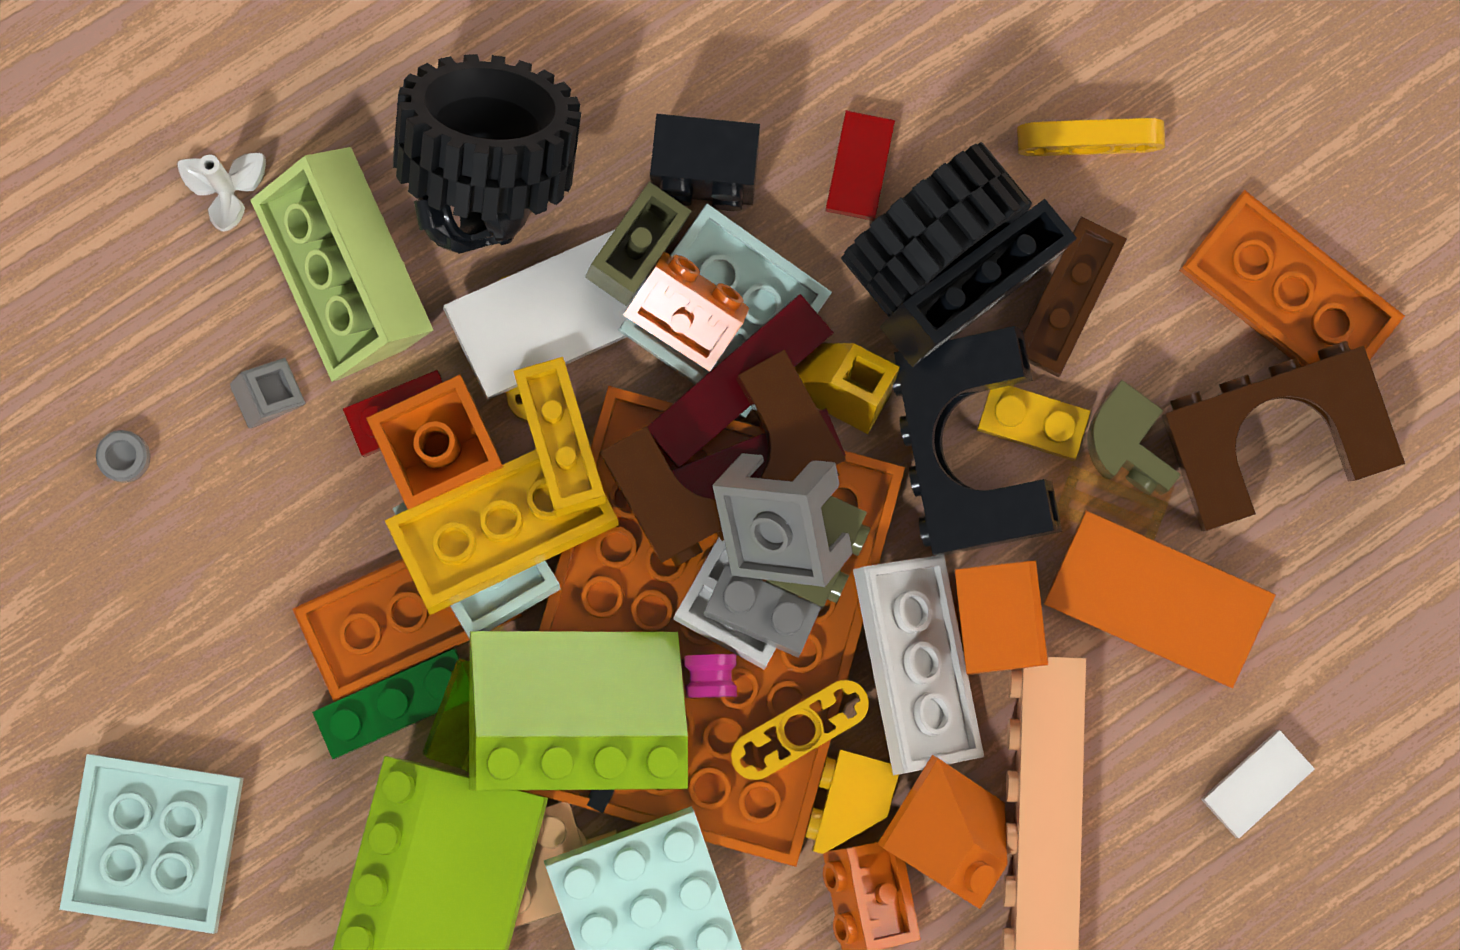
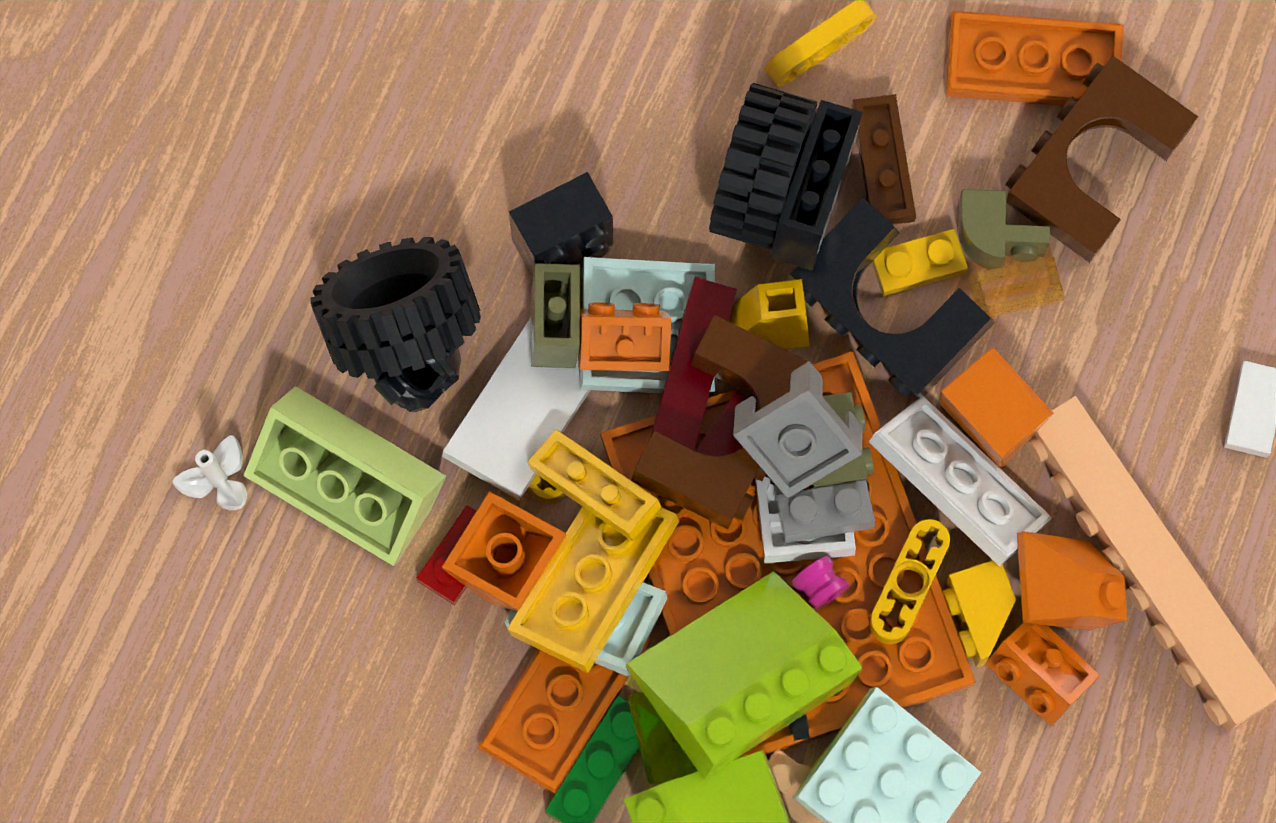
camera: 35 degrees left, 10 degrees down
(123, 456) = (274, 721): light grey tile -> none
(266, 392) = (350, 606): light grey slope -> none
(860, 165) = (671, 167): red tile -> none
(1159, 598) = (1095, 325): orange tile -> none

